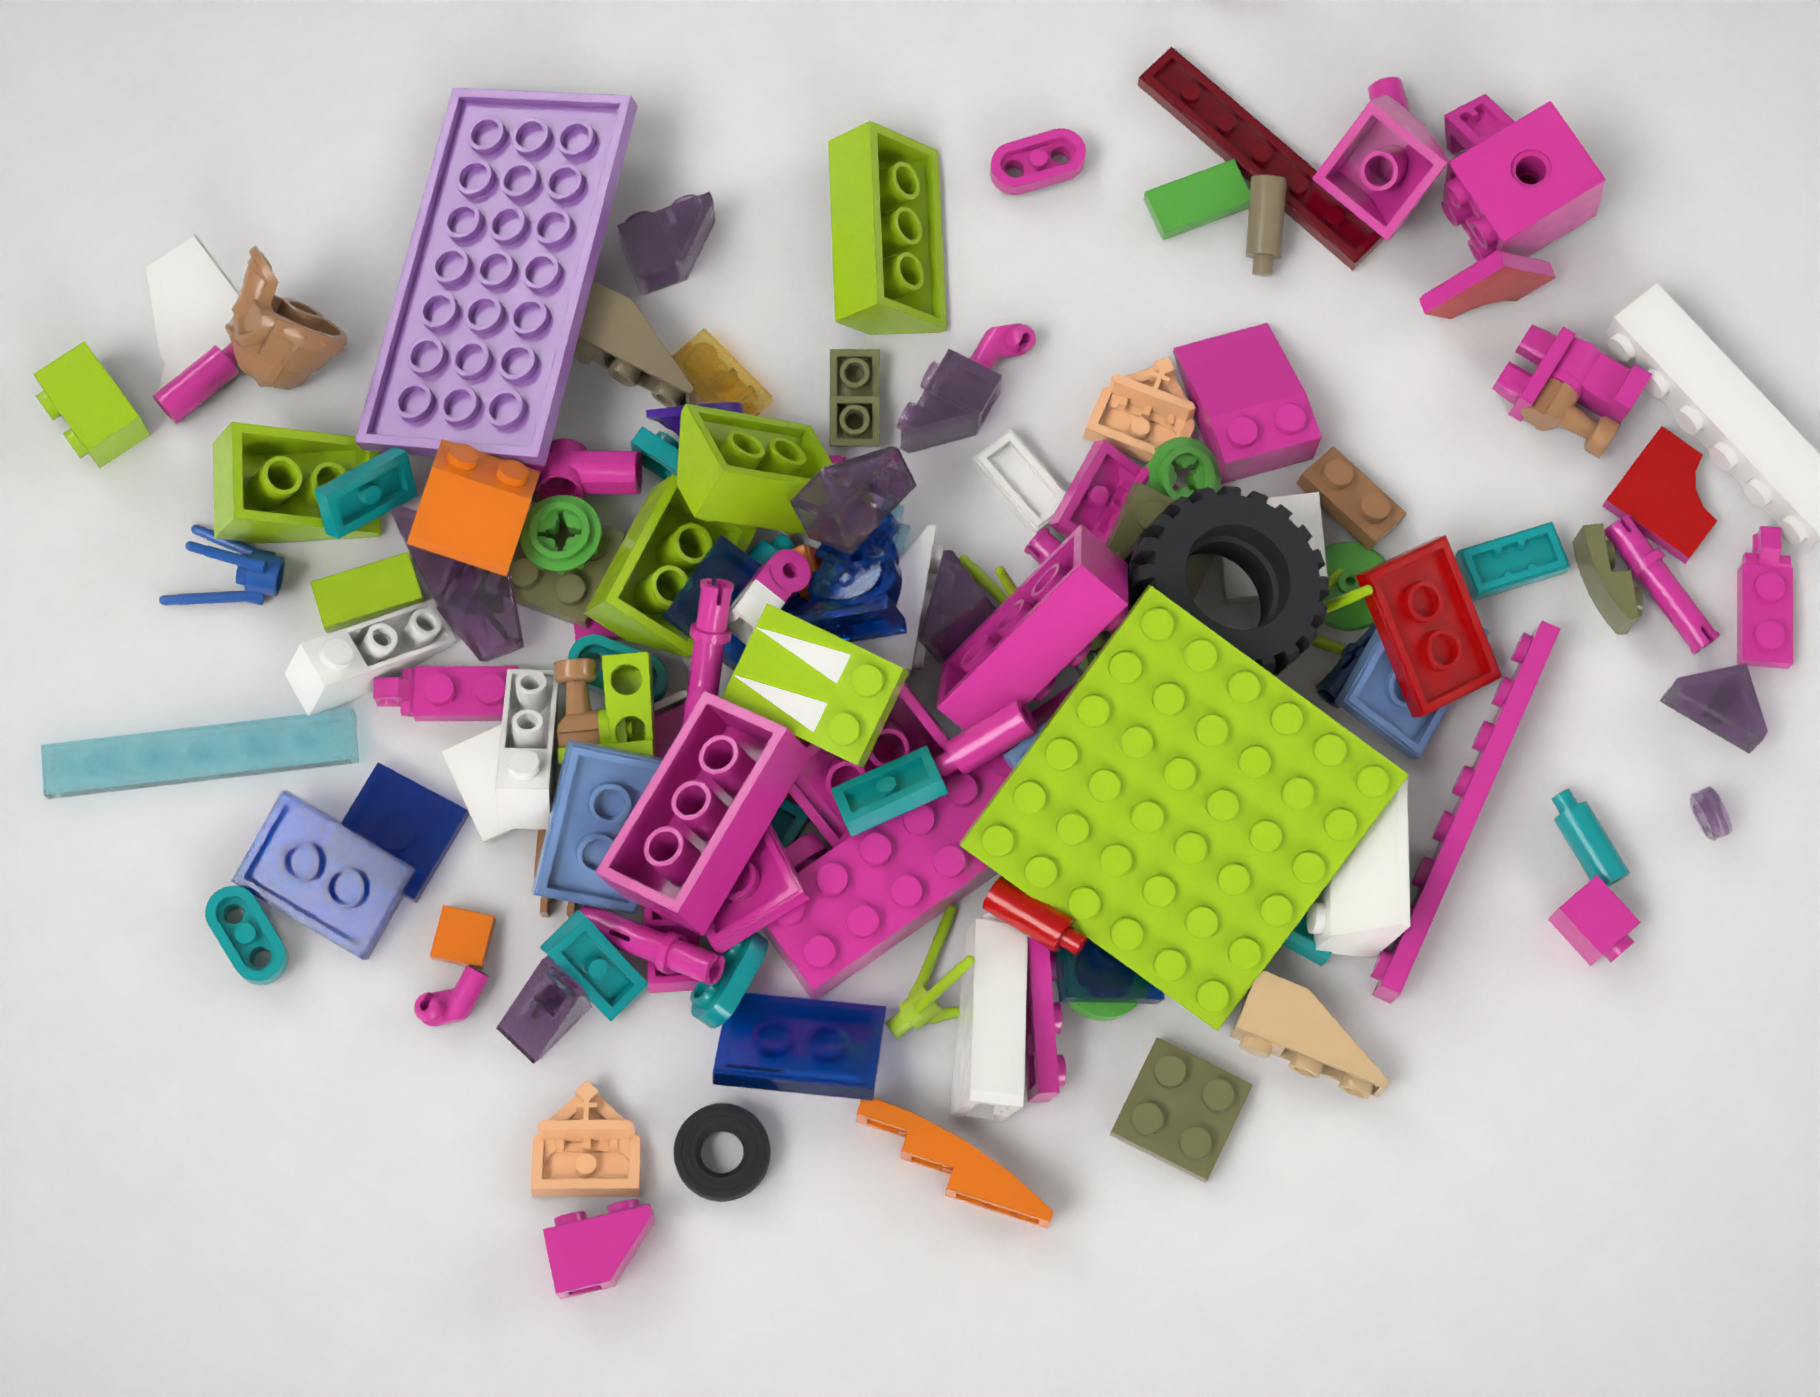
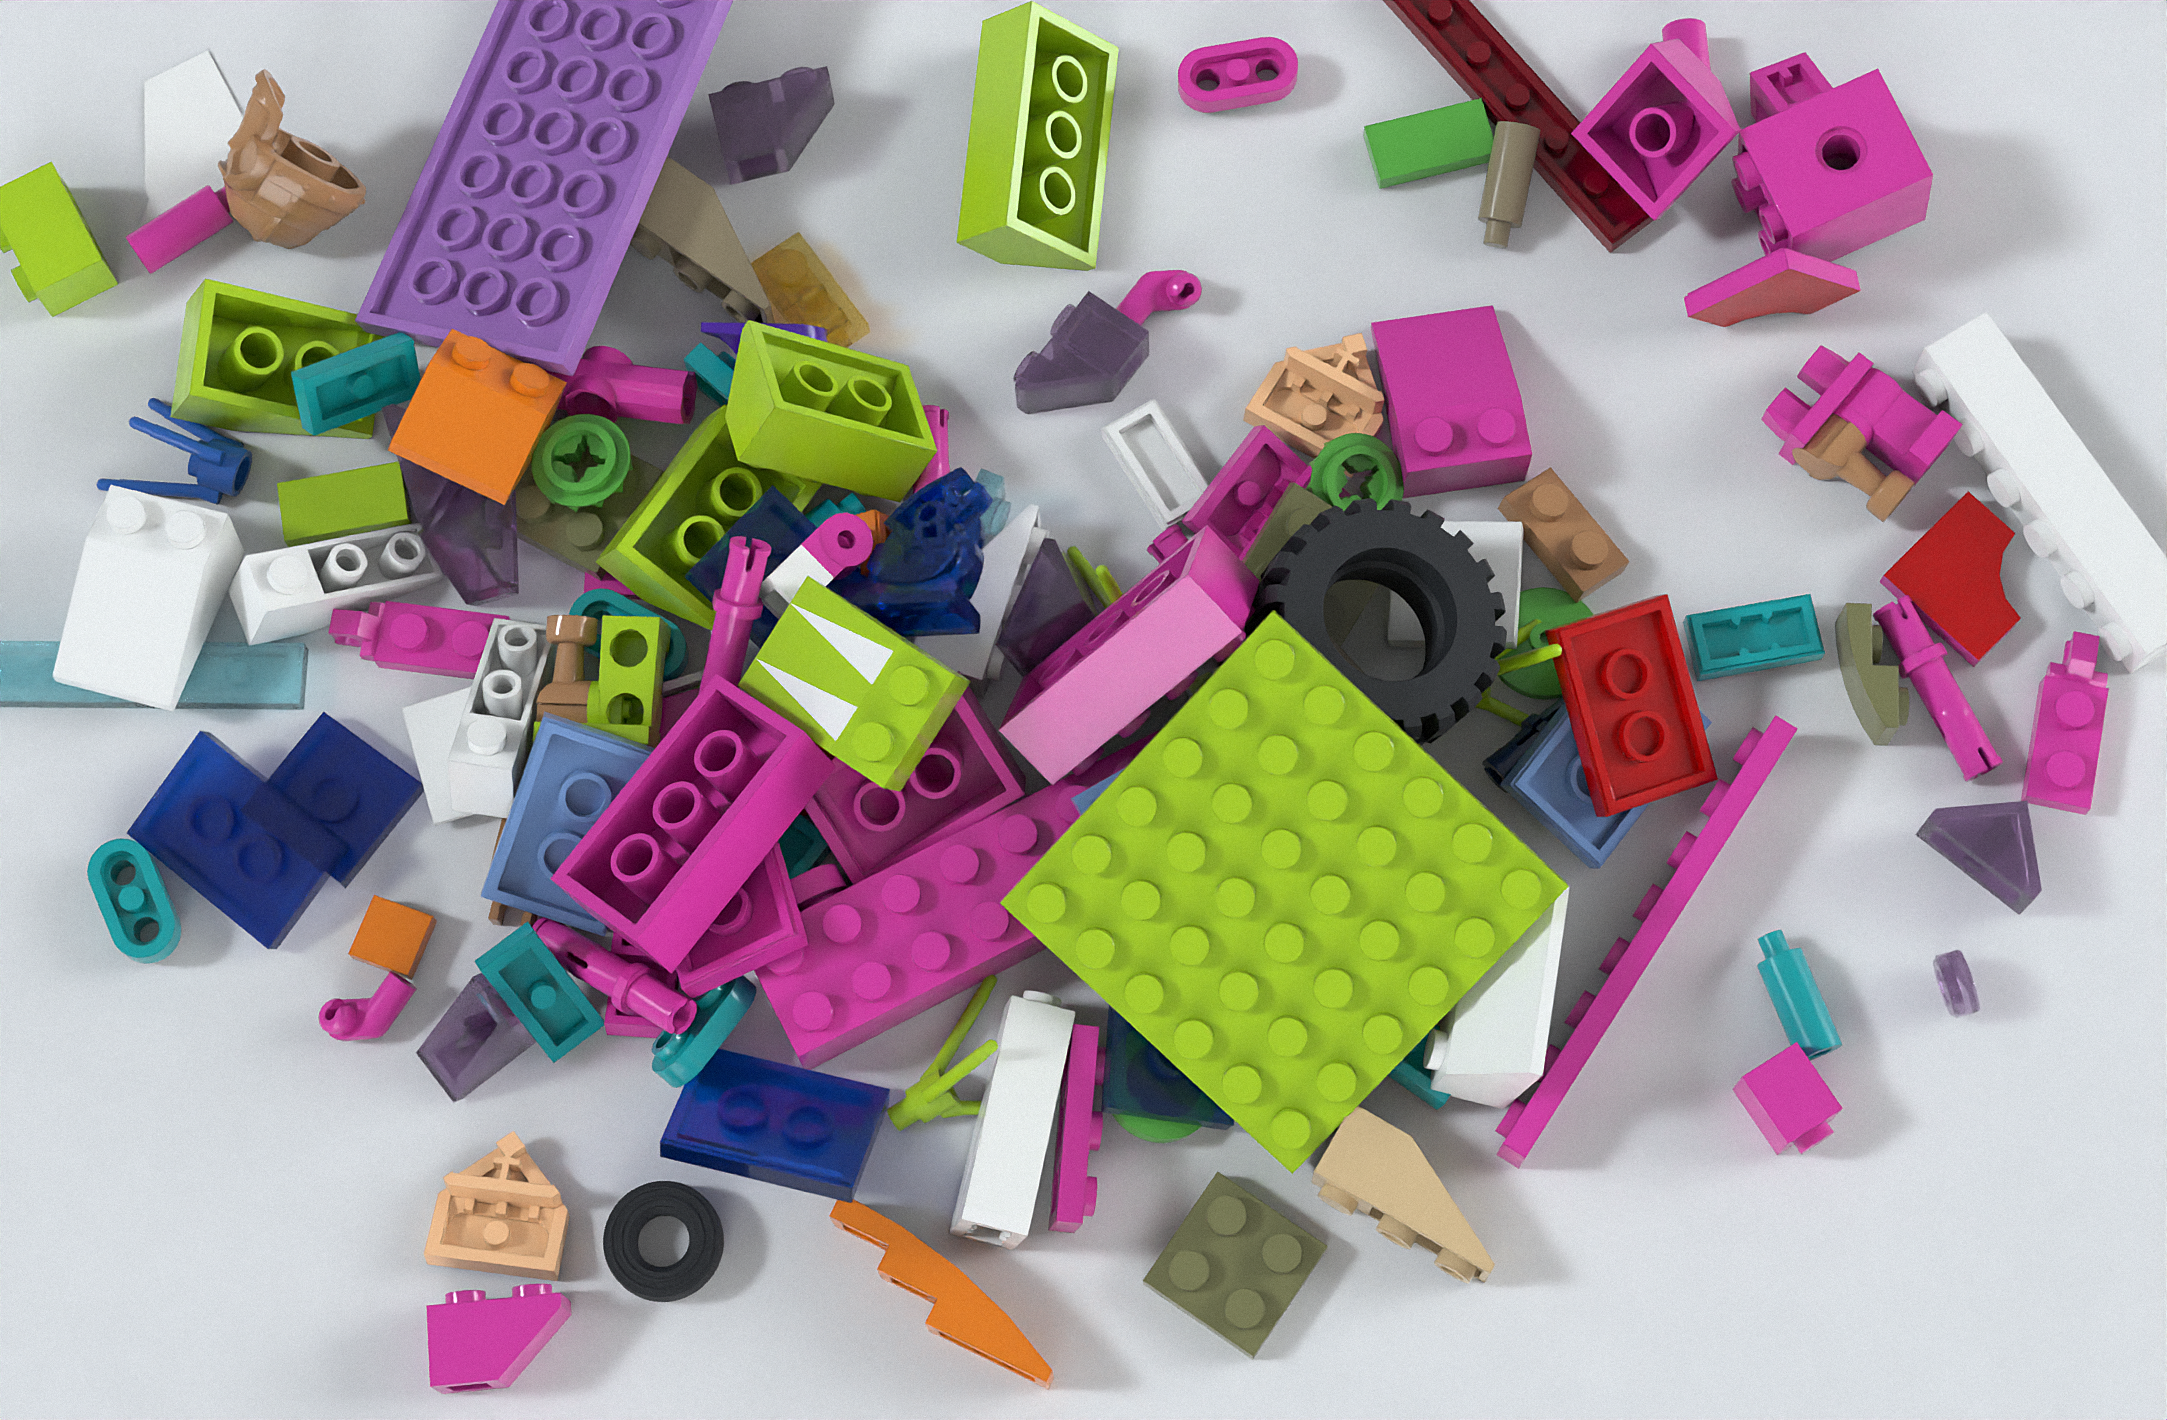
camera: 15 degrees right, 0 degrees up
(218, 687) = (146, 596): none -> white slope
(853, 497) = (937, 459): clear purple slope -> none
(854, 398) = (968, 338): olive slope -> none
(889, 791) = (926, 825): teal plate -> none
(987, 739) = (1055, 776): dark pink cylinder -> none
(1033, 917) = (1081, 1003): red cylinder -> none

